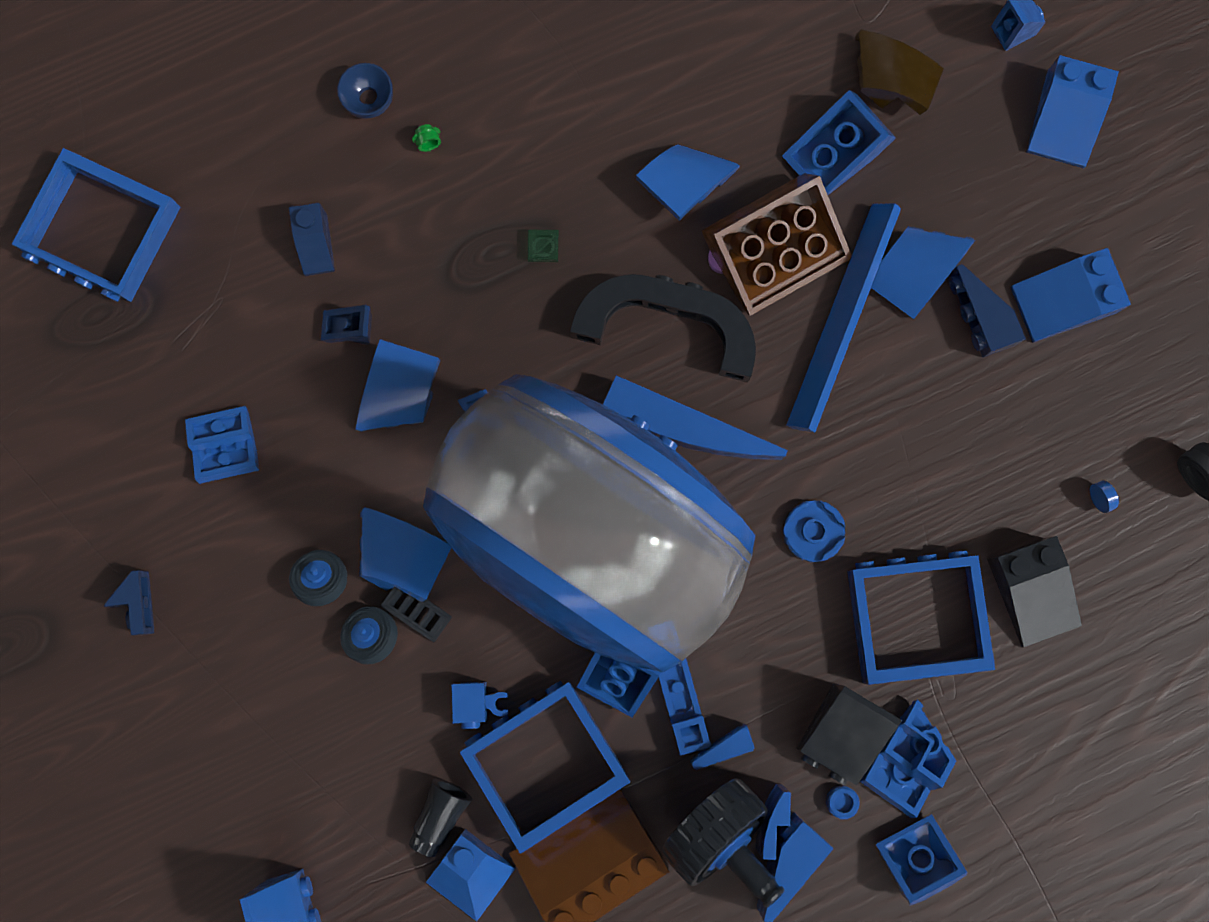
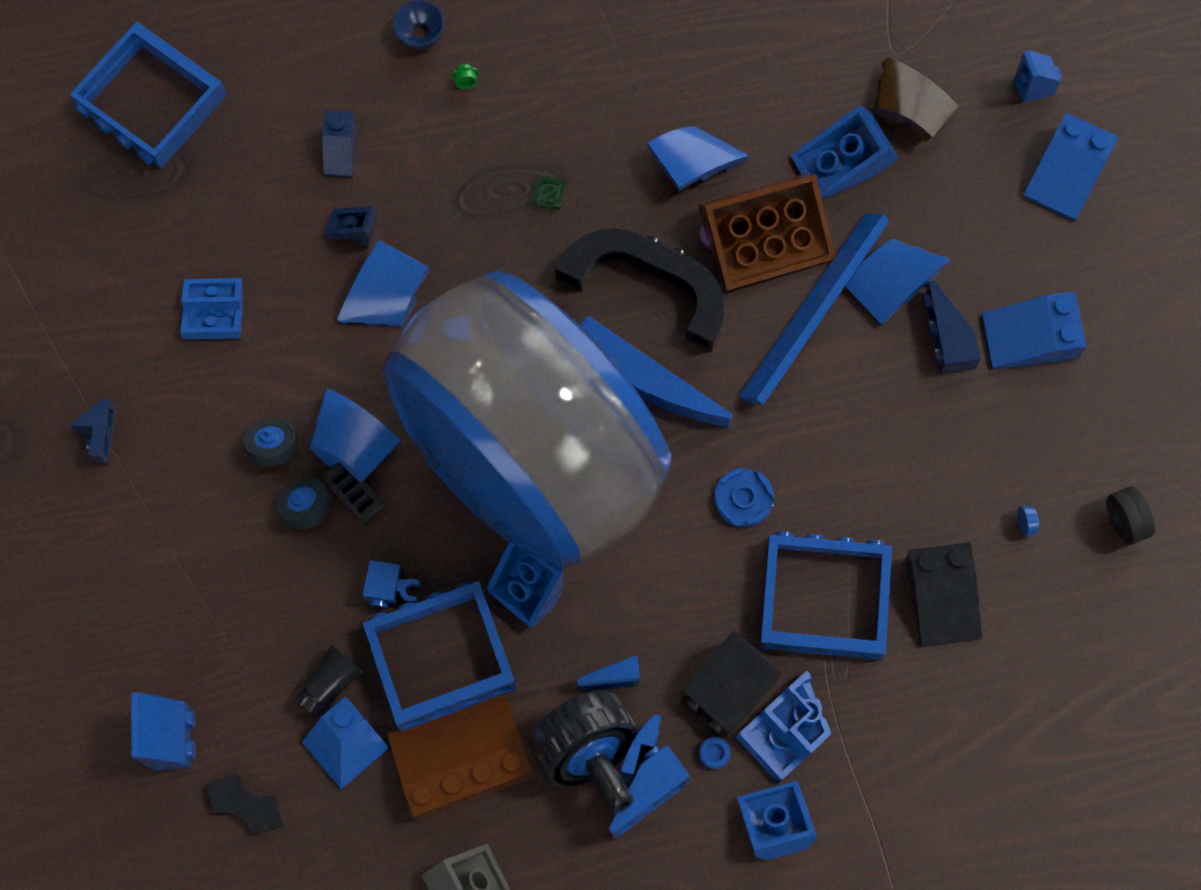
camera: 15 degrees right, 10 degrees down
(684, 709) = (581, 617): blue slope -> none

